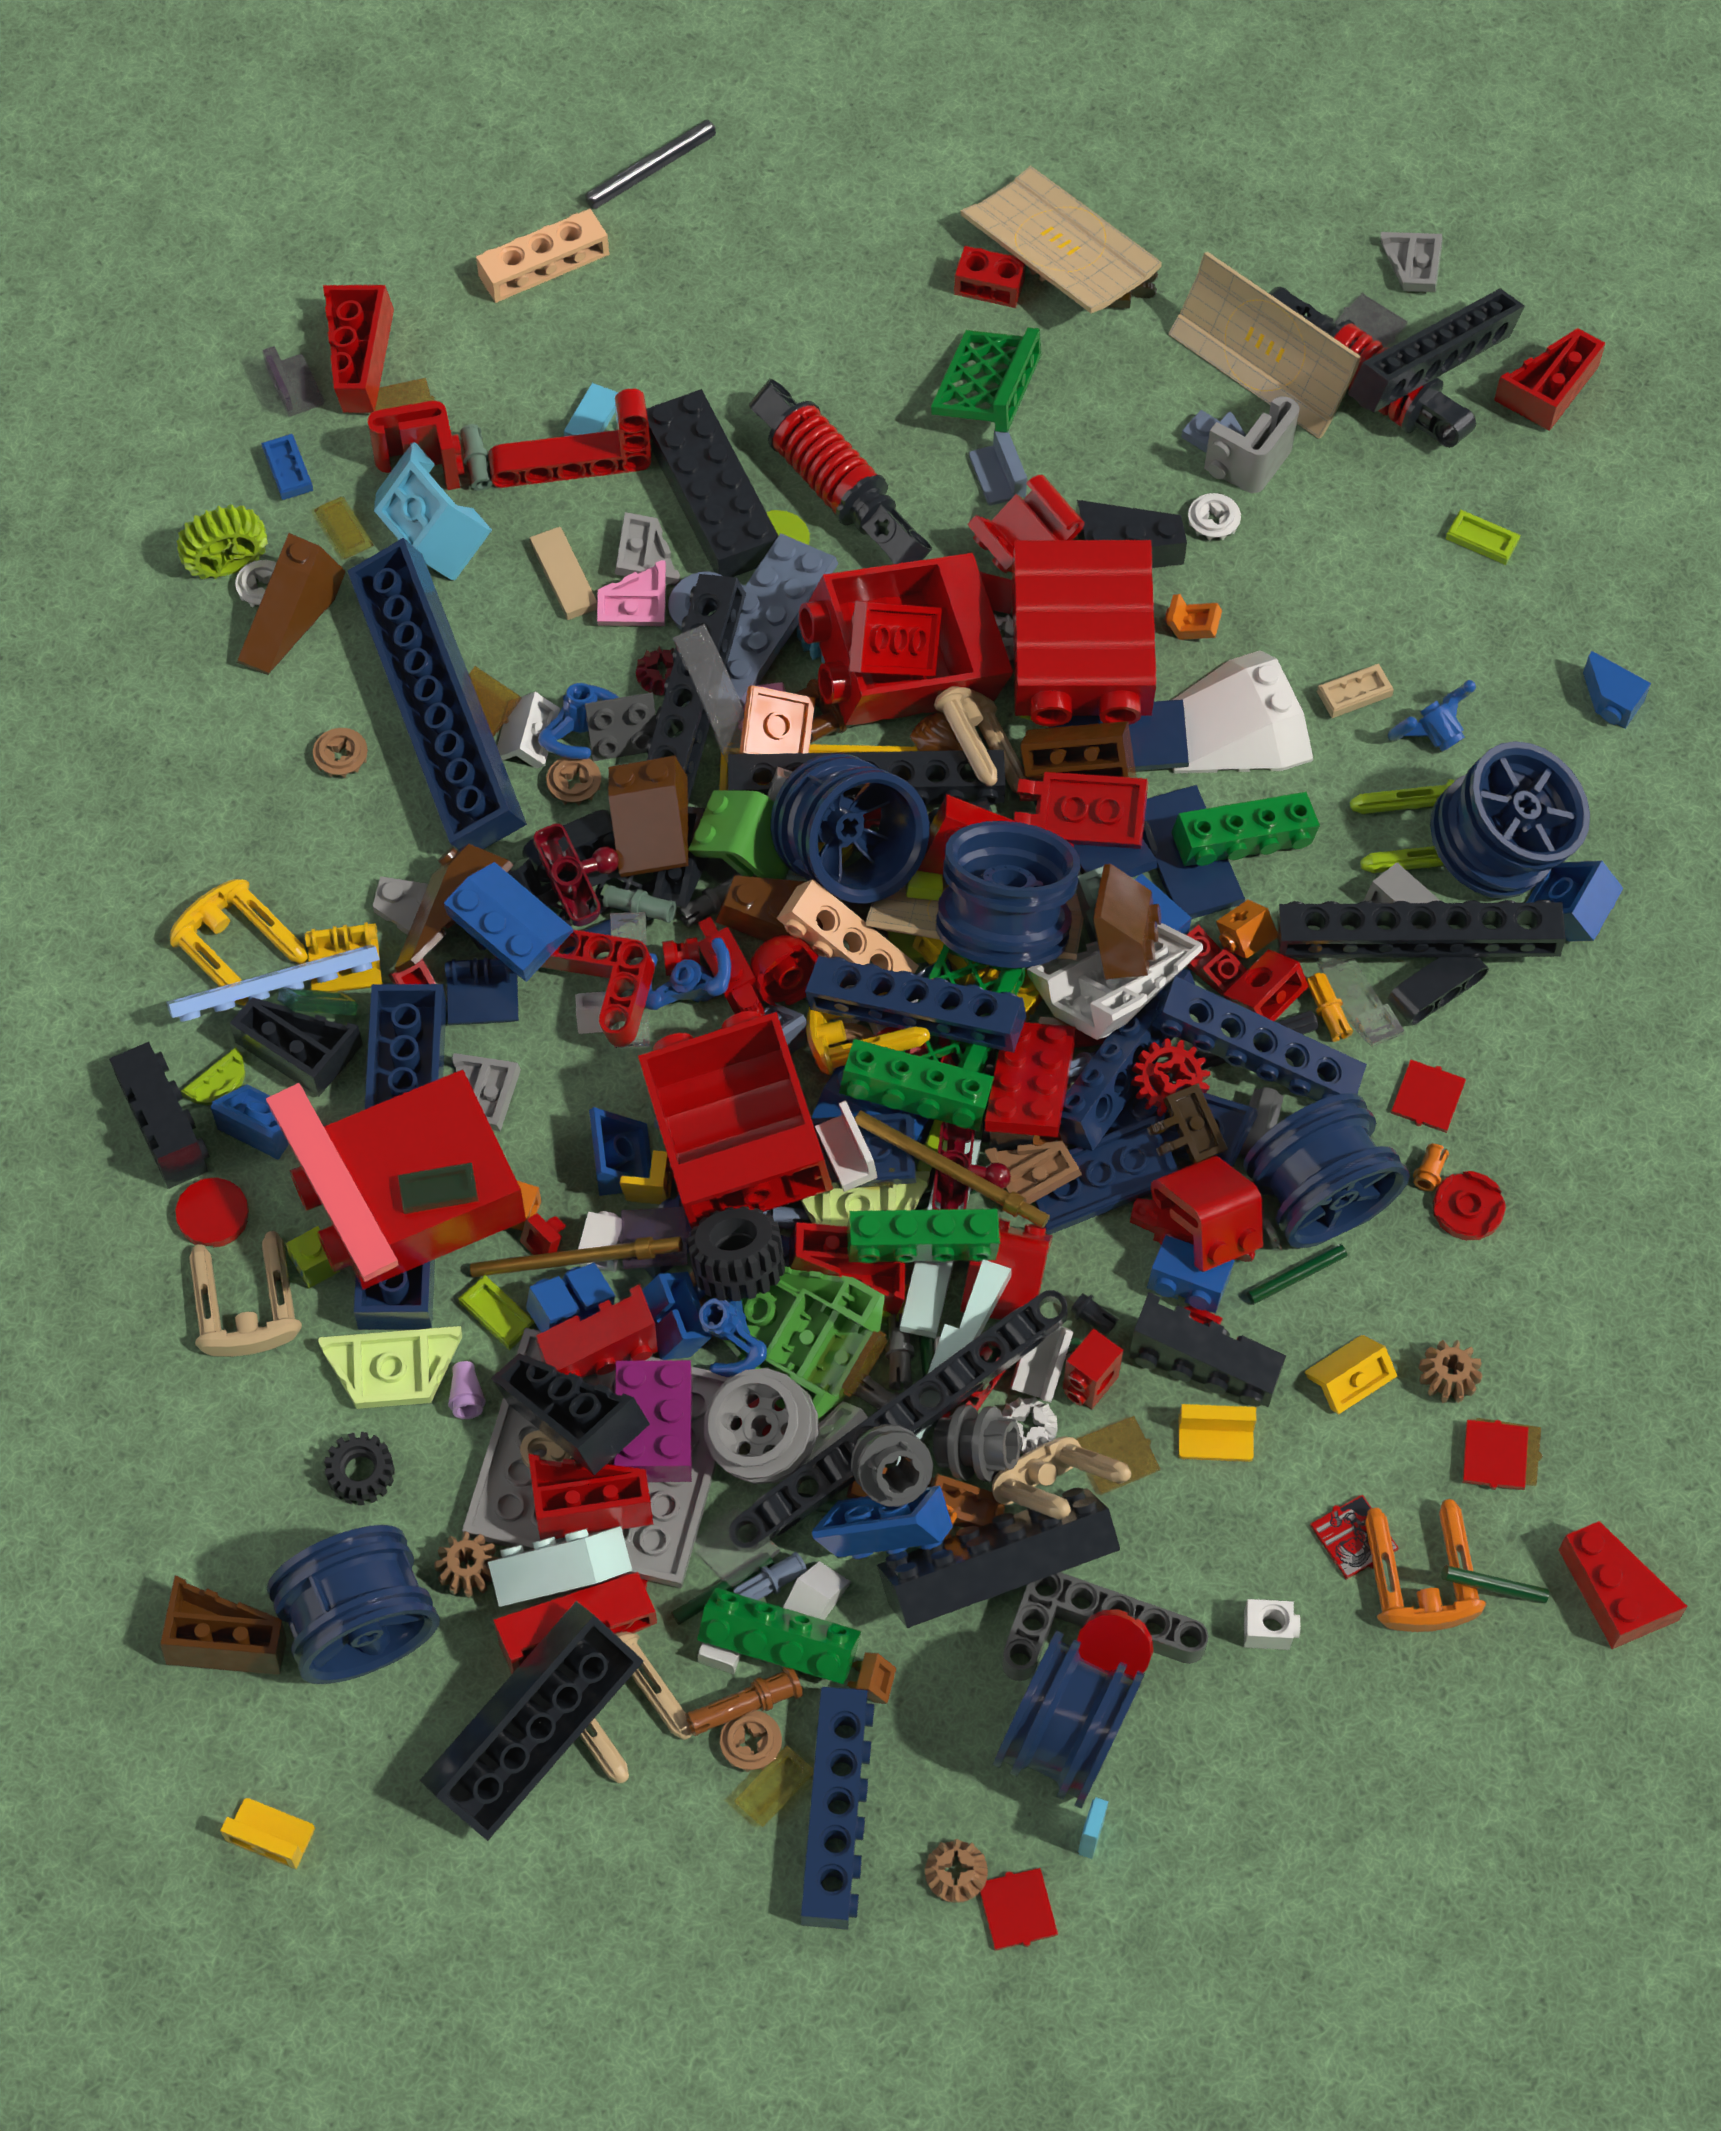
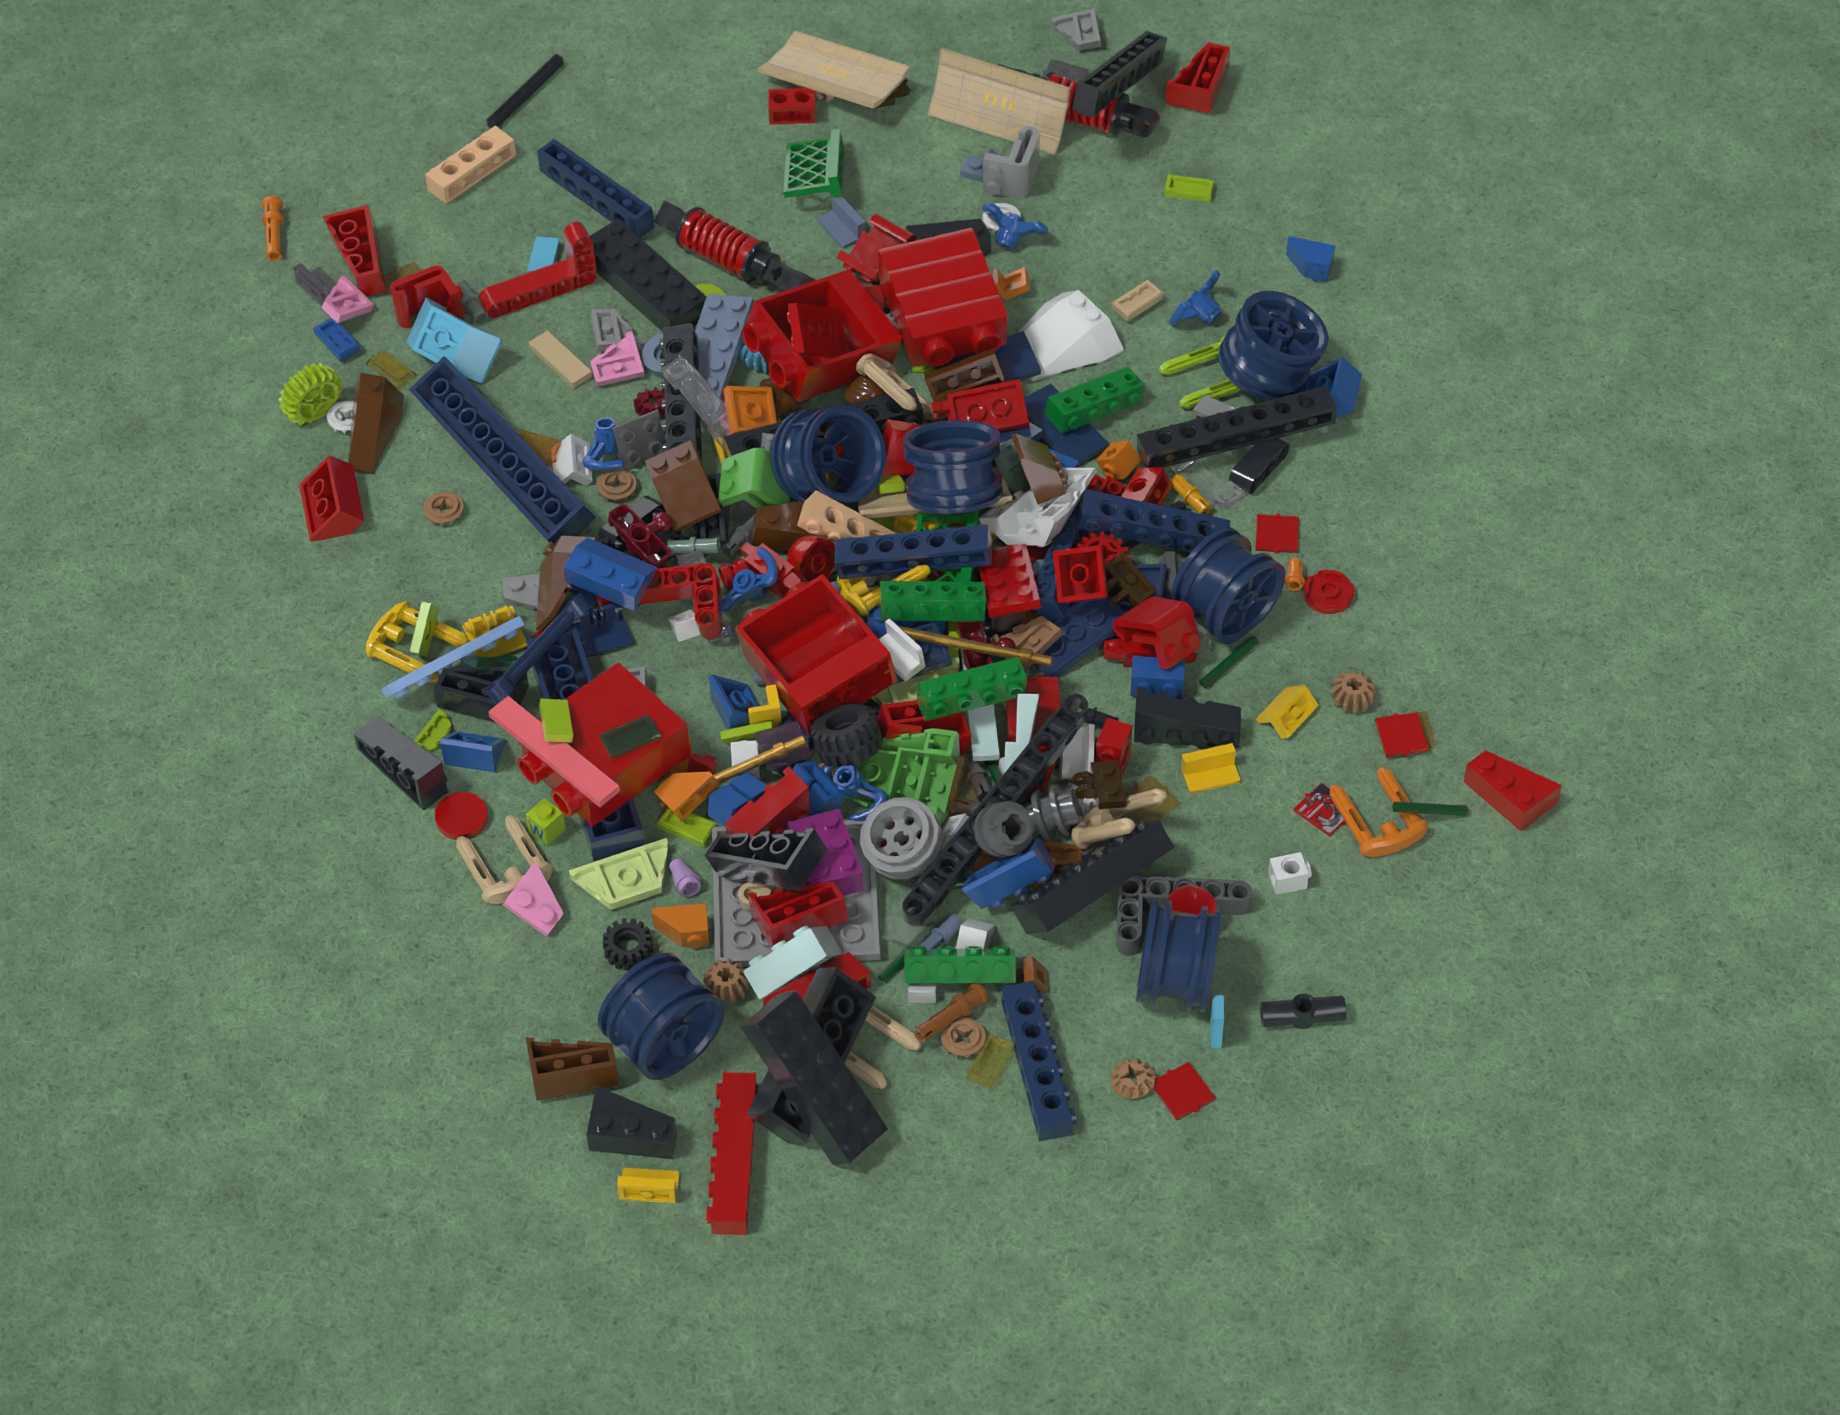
camera: 15 degrees left, 10 degrees down
(201, 702) = (331, 500): none -> red slope
(250, 929) = (424, 629): none -> lime tile
(259, 1372) = (535, 901): none -> bright pink wing
(264, 271) = (273, 220): none -> orange pin
(267, 1744) = (629, 1127): none -> black wedge
(315, 416) = (346, 301): none -> bright pink wing
(317, 1048) = (506, 683): none -> dark blue piece
(347, 1138) = (556, 720): none -> lime tile
(390, 1826) = (733, 1155): none -> red brick
(443, 1462) = (683, 924): none -> orange slope
(502, 1271) = (686, 791): none -> orange slope
(516, 1764) = (814, 1077): none -> black brick
(614, 1201) = (745, 732): none -> lime tile
(690, 335) = (594, 187): none -> dark blue brick
(1062, 1424) = (1101, 783): none -> dark brown hinge
(1126, 1101) = (1080, 574): none -> red slope
(1220, 537) = (1011, 226): none -> blue piece
(1244, 1845) = (1288, 1011): none -> black piece

